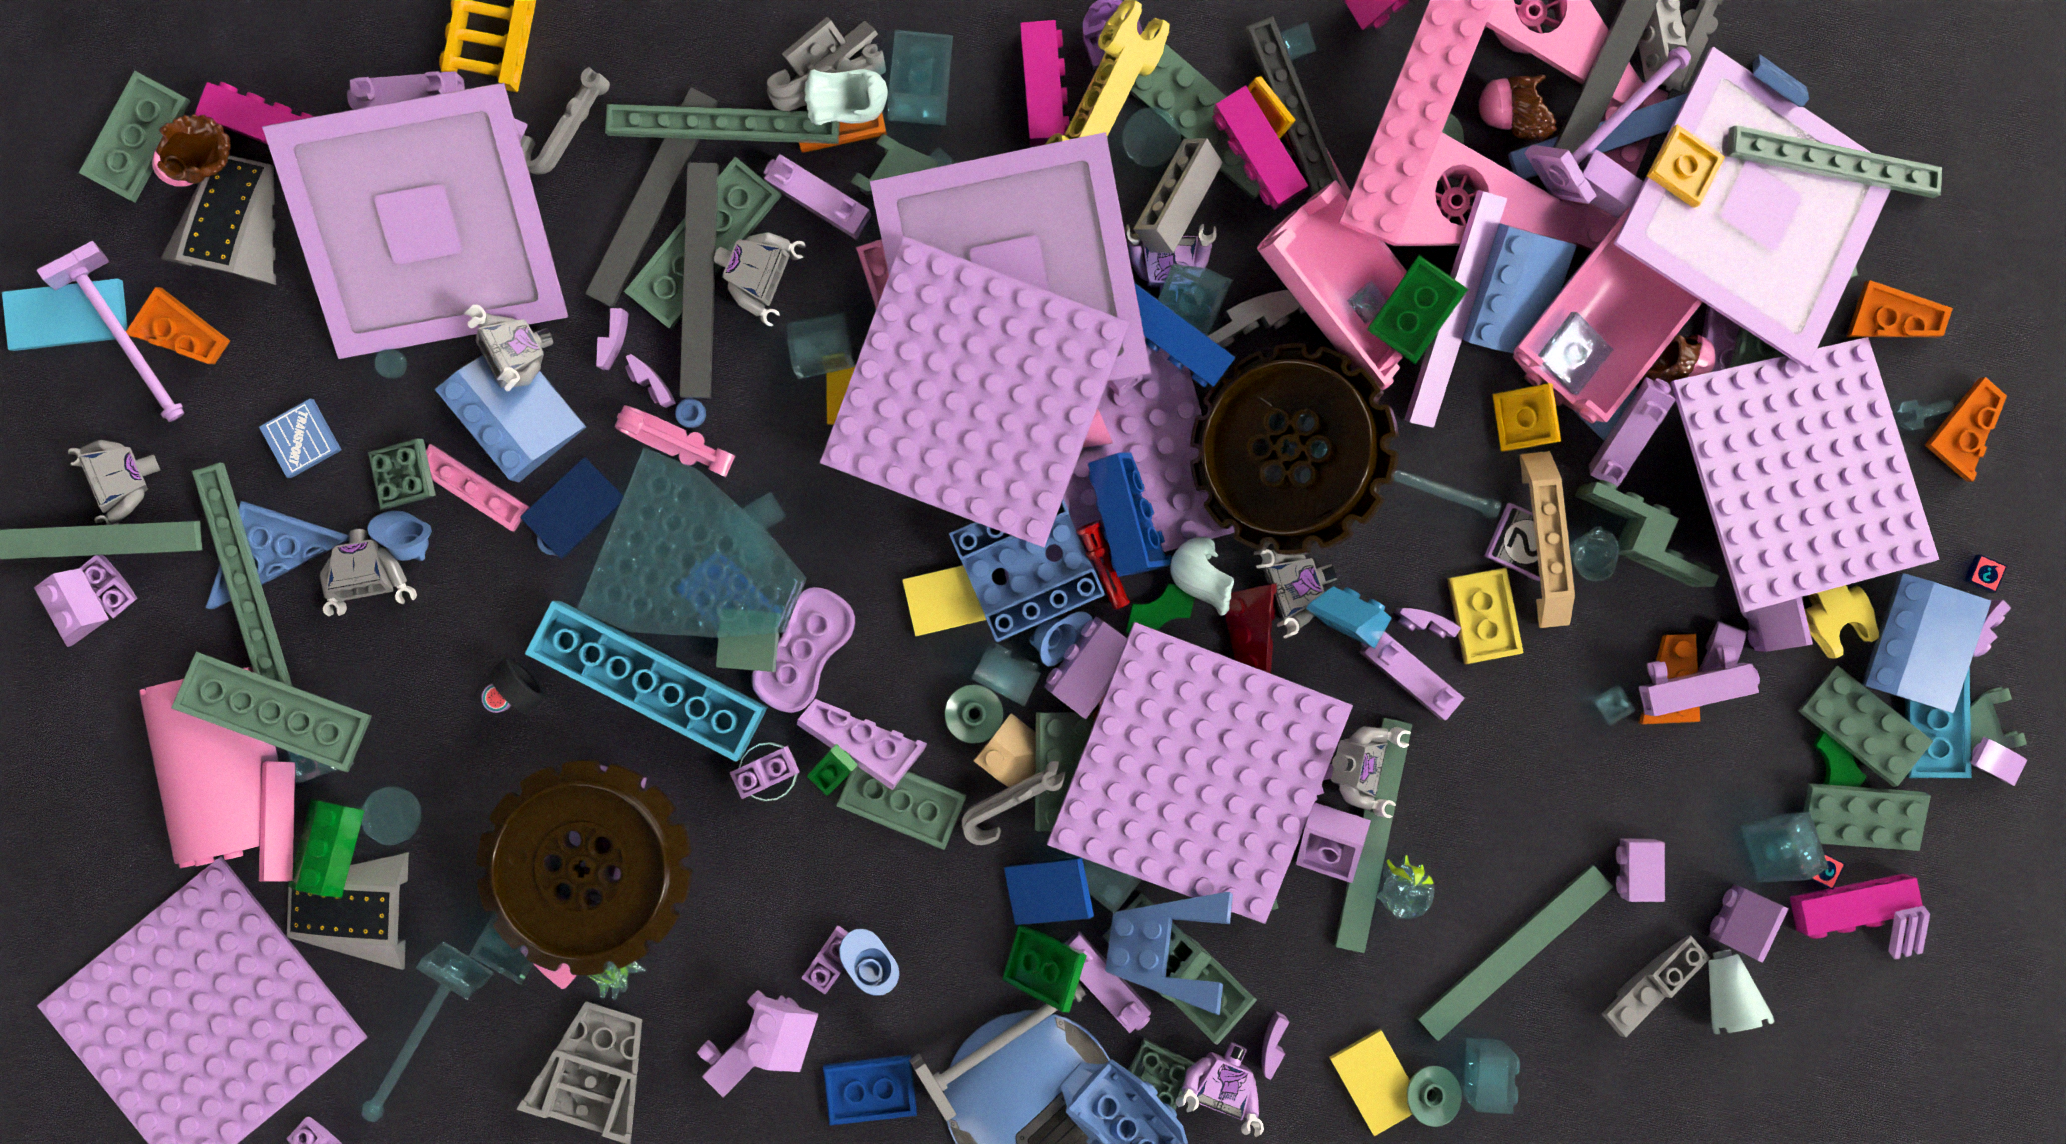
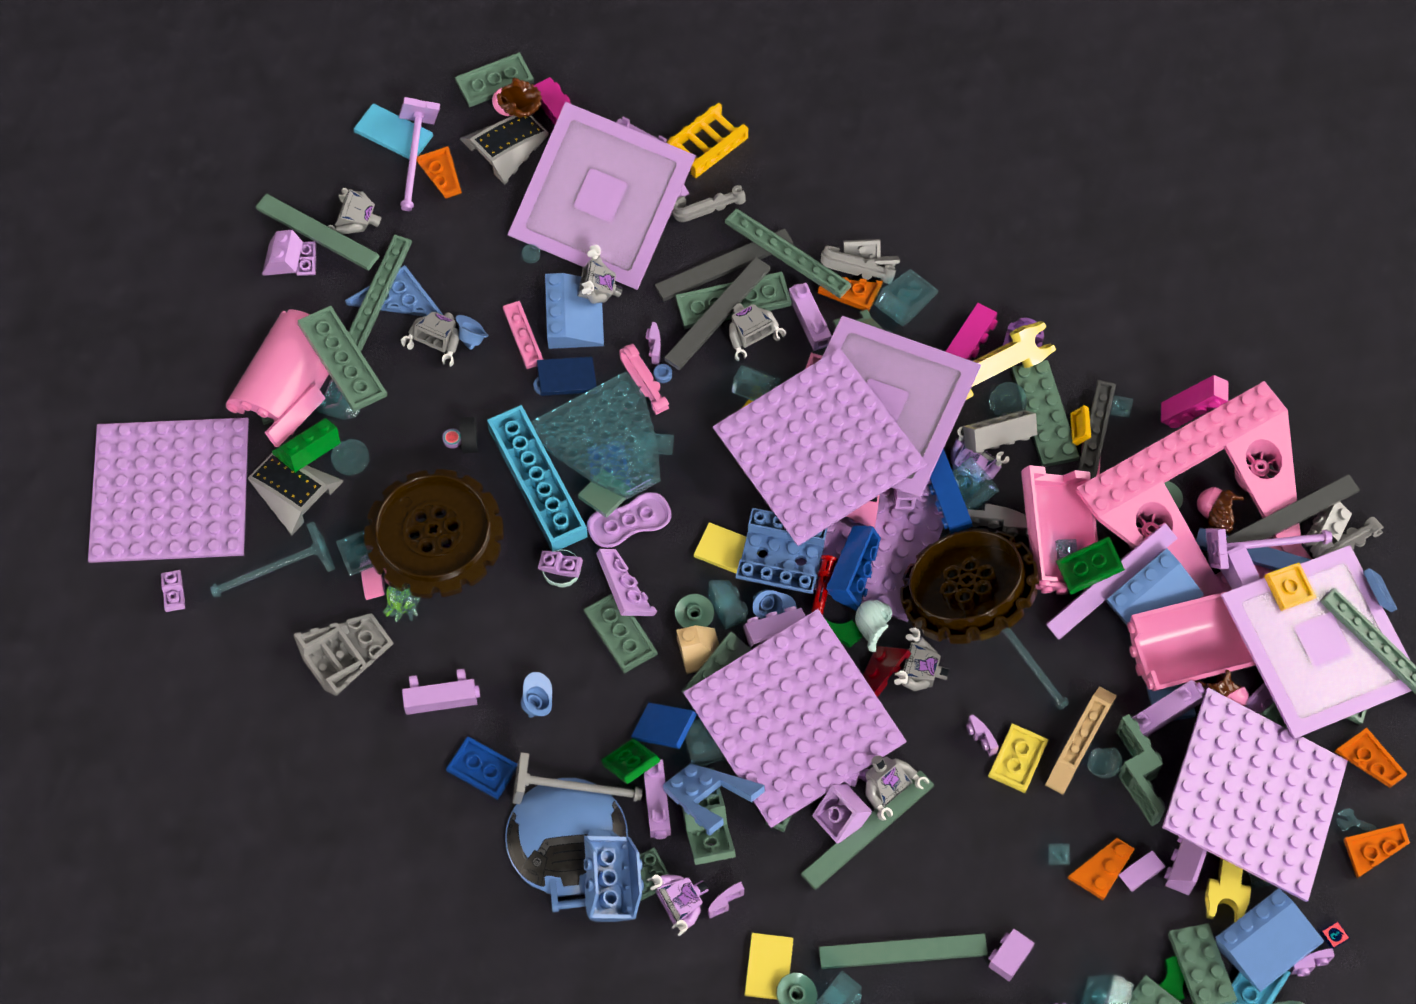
camera: 40 degrees right, 25 degrees down
(300, 438) = (457, 257): medium blue tile -> none
(401, 473) = (494, 304): sand green tile -> none
(609, 347) = (648, 315): lavender slope -> none
(778, 1036) = (460, 692): lavender slope -> none
(827, 963) = (511, 686): lavender slope -> none
(832, 770) = (596, 585): green plate -> none
(844, 96) = (859, 276): light aqua piece -> none
(1006, 799) = (702, 662): light grey piece -> none
(1259, 148) = (1061, 437): dark pink brick -> none
(1351, 615) = (939, 697): dark azure slope -> none
(1407, 890) = (864, 863): clear light blue hair -> none
(1413, 676) = (952, 756): lavender brick -> none
(1515, 542) = (1061, 727): slope -> none
(1526, 417) = (1115, 667): yellow tile -> none
(1575, 353) = (1166, 650): clear light blue tile -> none
(1699, 688) = (1114, 871): lavender brick -> none

